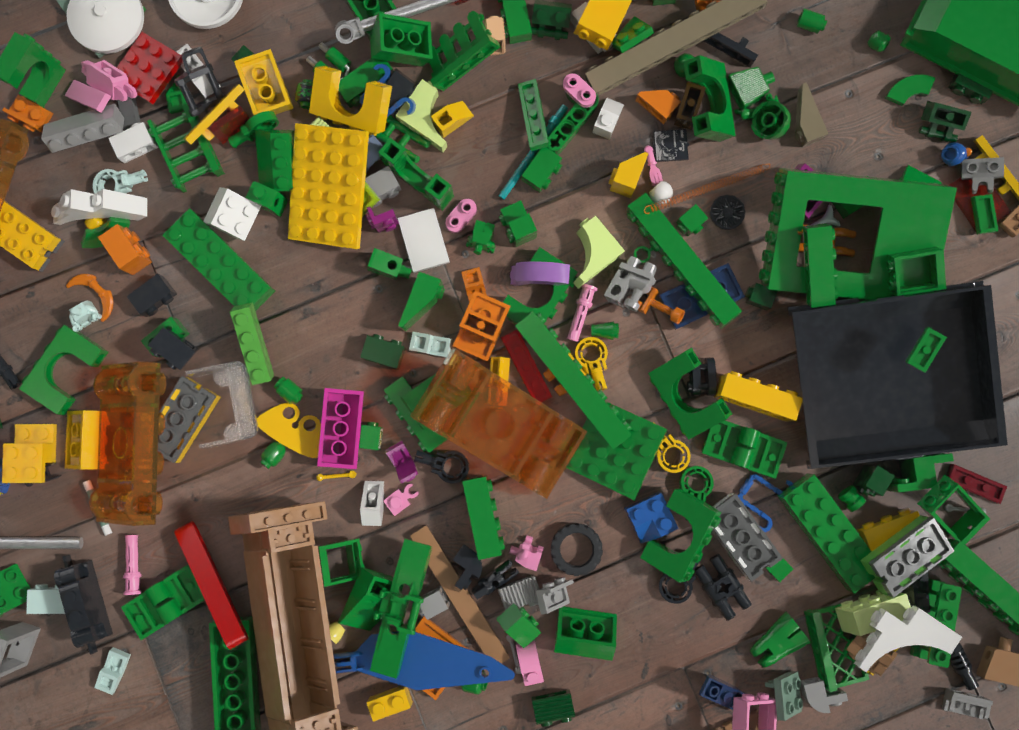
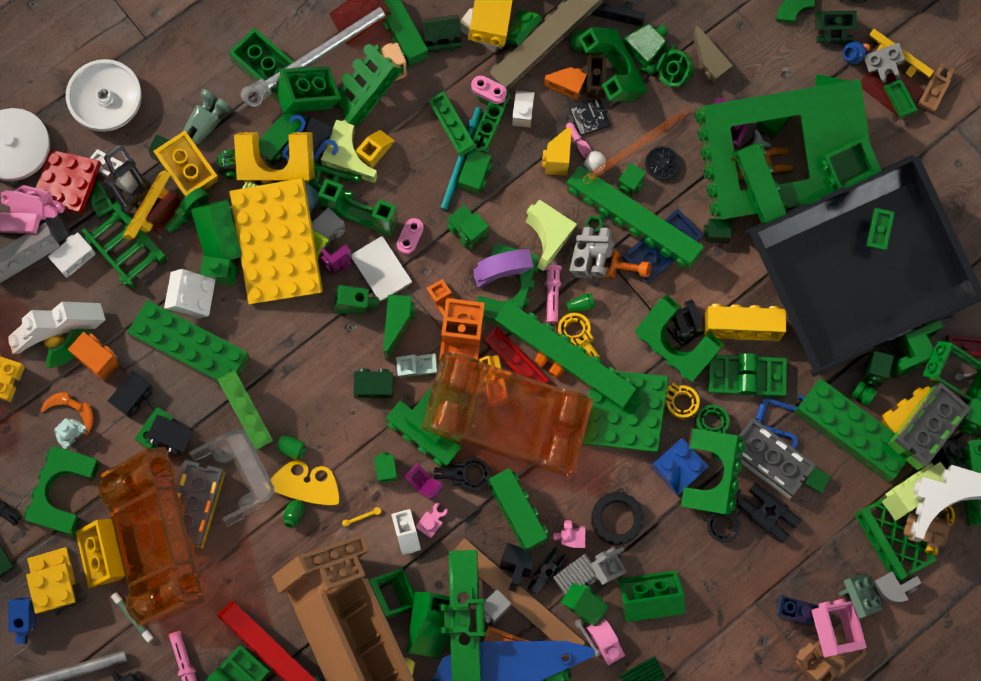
camera: 20 degrees left, 10 degrees down
(122, 180) = (67, 291): light aqua pin -> none
(294, 43) = (205, 120): none -> sand green piece
(334, 57) = (243, 122): green piece -> none
(340, 428) = (353, 467): dark pink slope -> none
(482, 238) = (437, 250): green piece -> none
(779, 641) = (840, 547): green piece -> none

